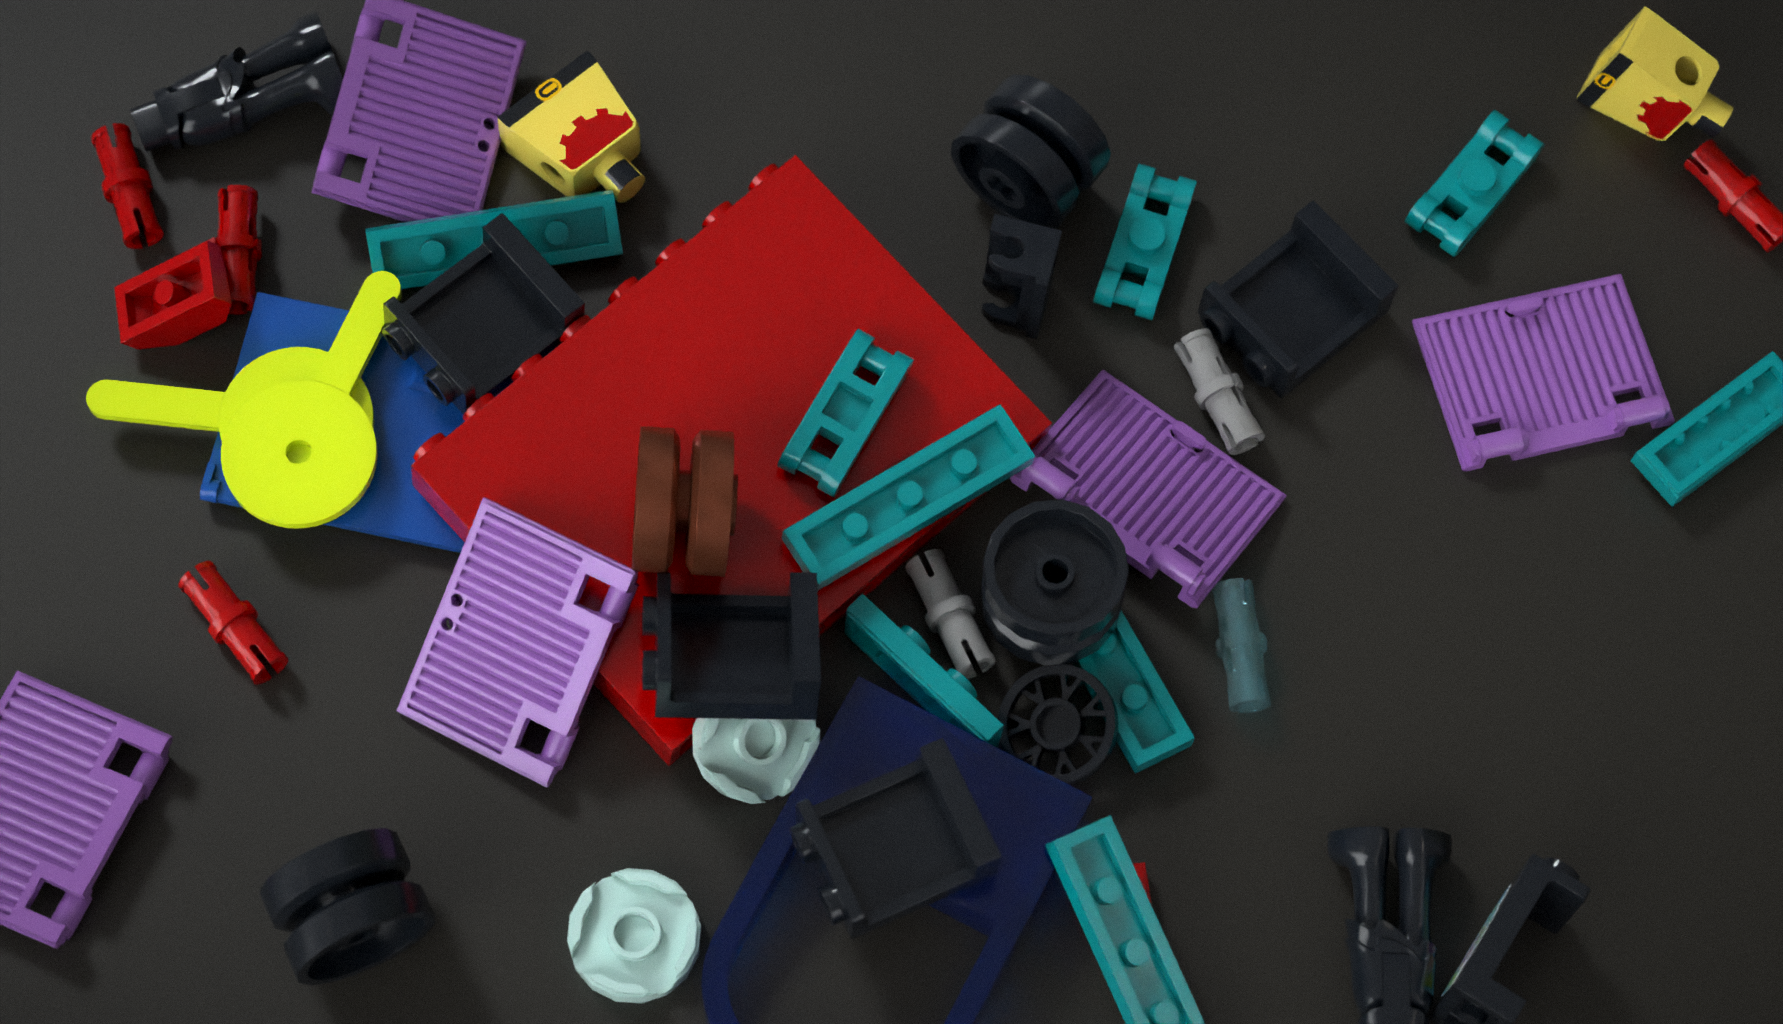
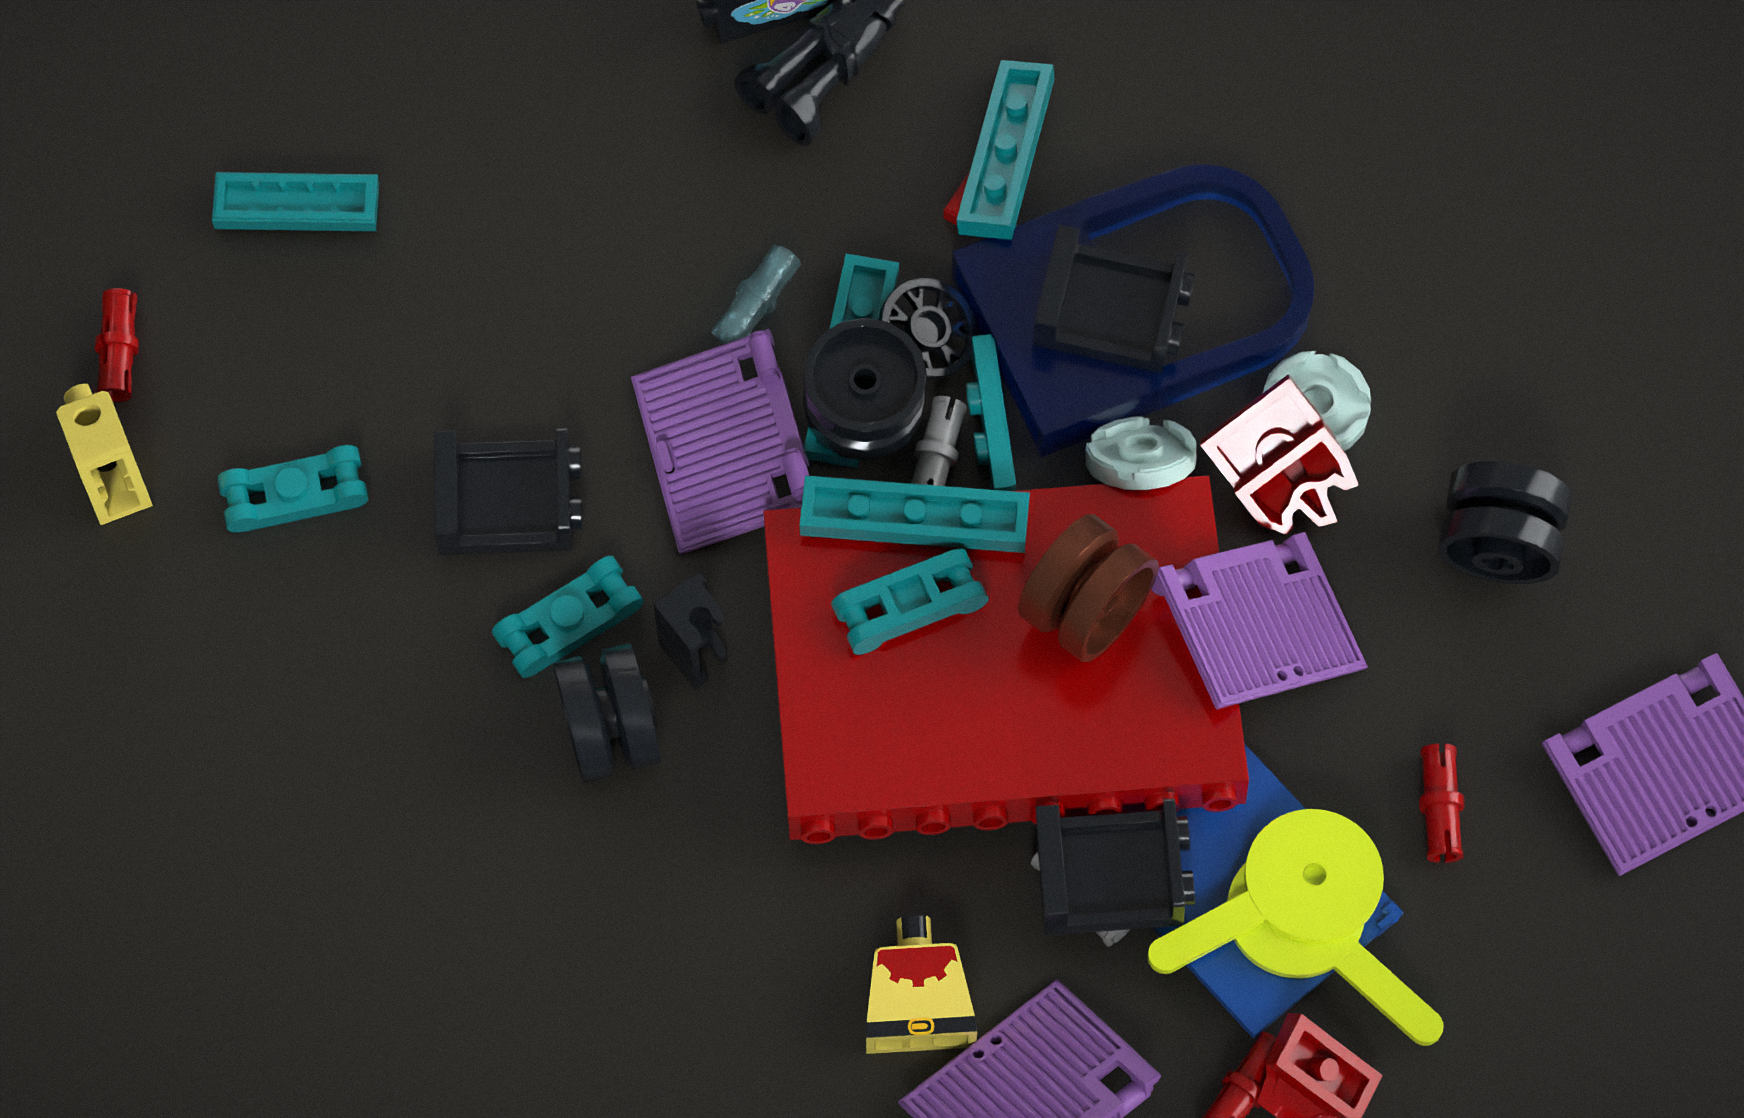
camera: 135 degrees left, 0 degrees up
(557, 228) = (1057, 959): teal plate -> none
(620, 833) = (1280, 458): none -> plate
(733, 653) = (1124, 480): black panel -> none
(1219, 391) = (614, 473): light grey pin -> none
(1542, 371) = (373, 334): medium lavender window -> none

